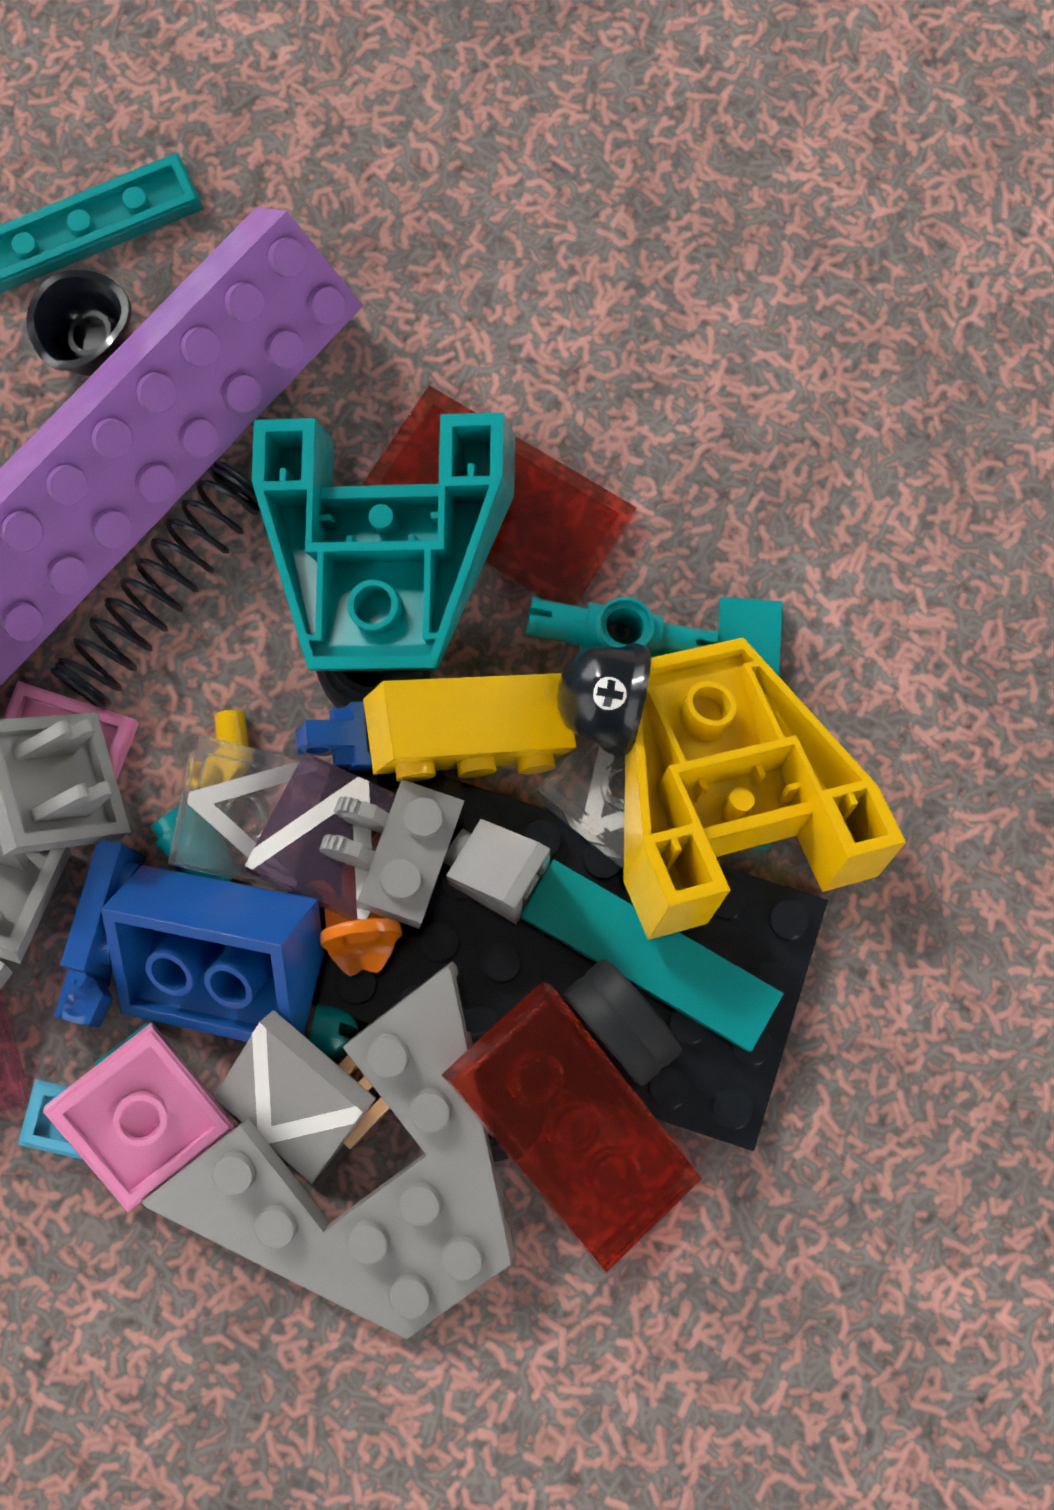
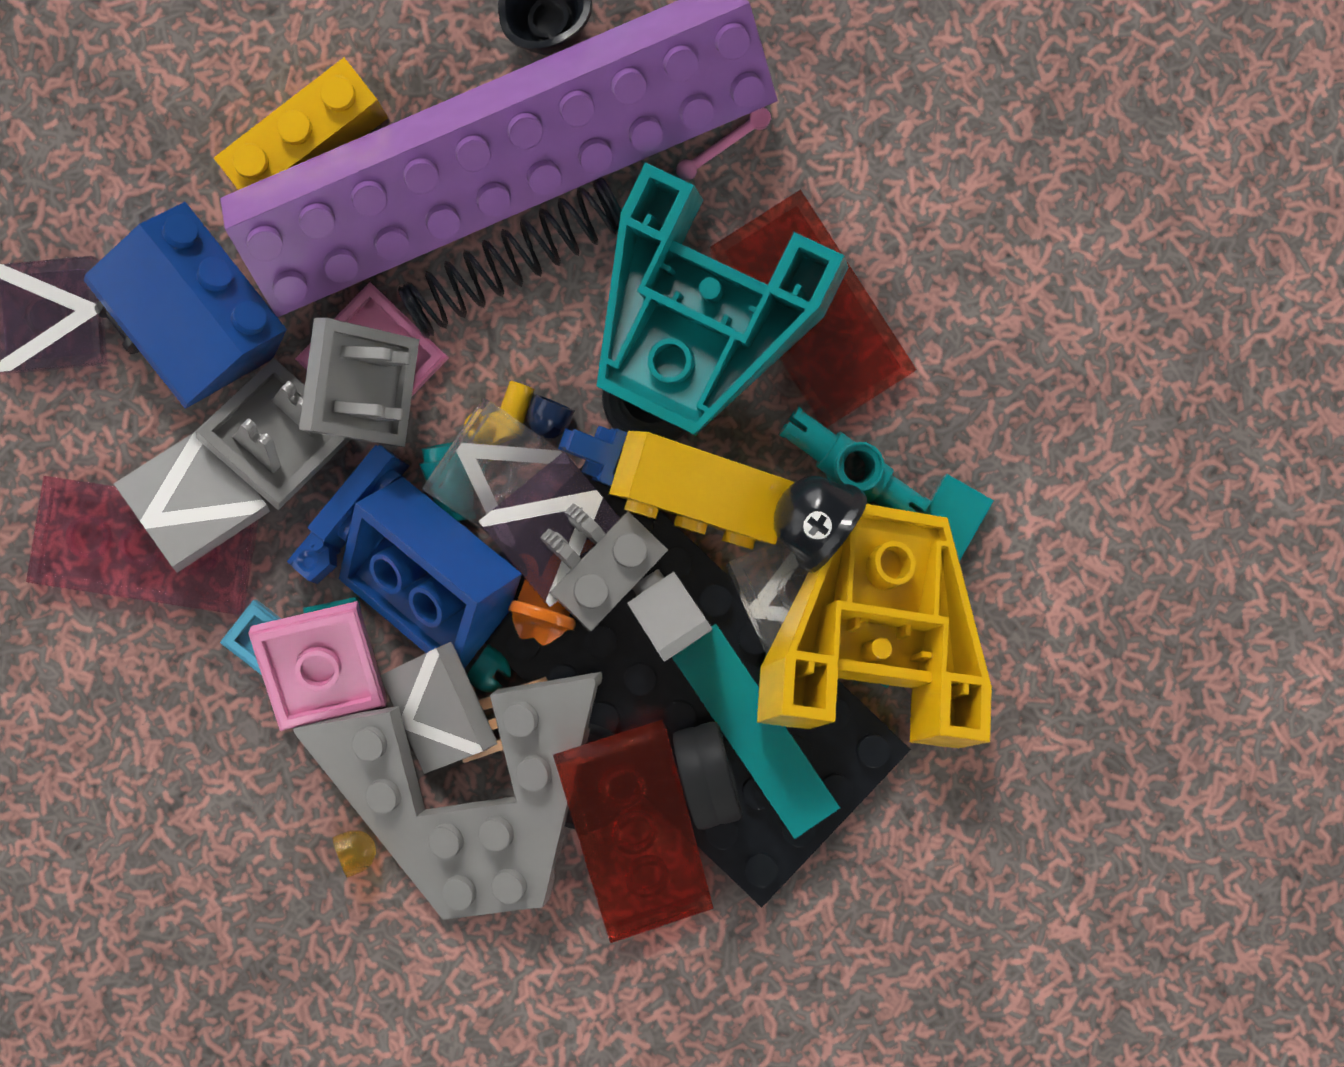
camera: 25 degrees right, 10 degrees up
(272, 1308) = (355, 851): none -> clear yellow hinge
(273, 731) = (548, 417): none -> dark blue hinge
(354, 340) = (757, 120): none -> bright pink hinge

